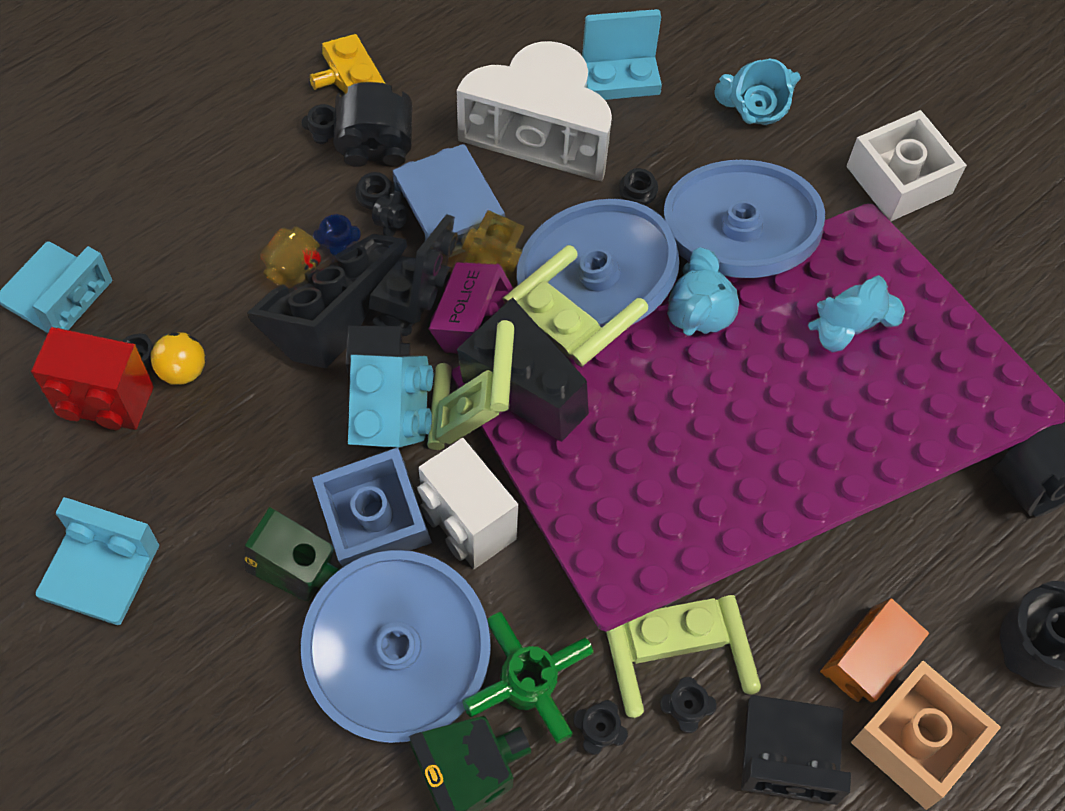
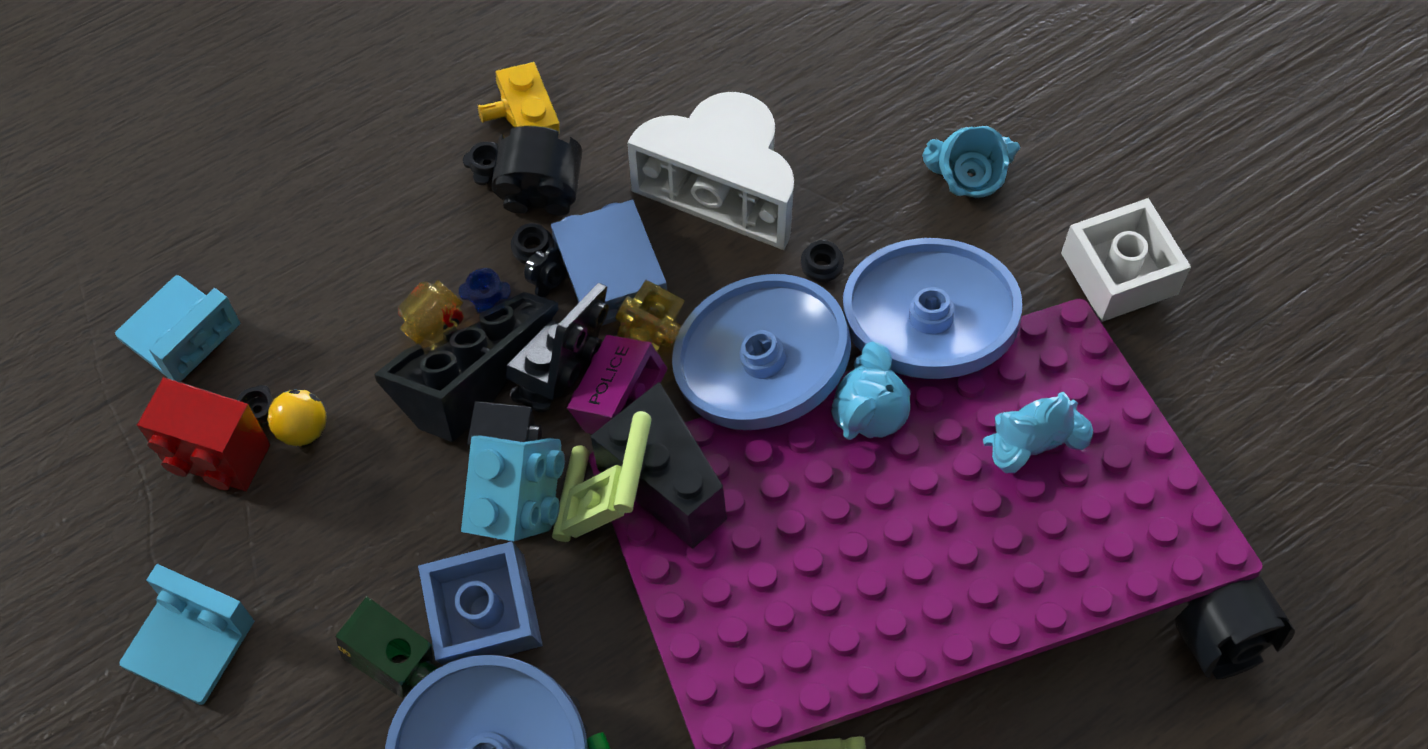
camera: 10 degrees right, 0 degrees up
(467, 504) = (582, 609): white brick -> none
(562, 320) = (711, 411): yellowish green plate -> none
(622, 53) = (821, 108): medium azure bracket -> none

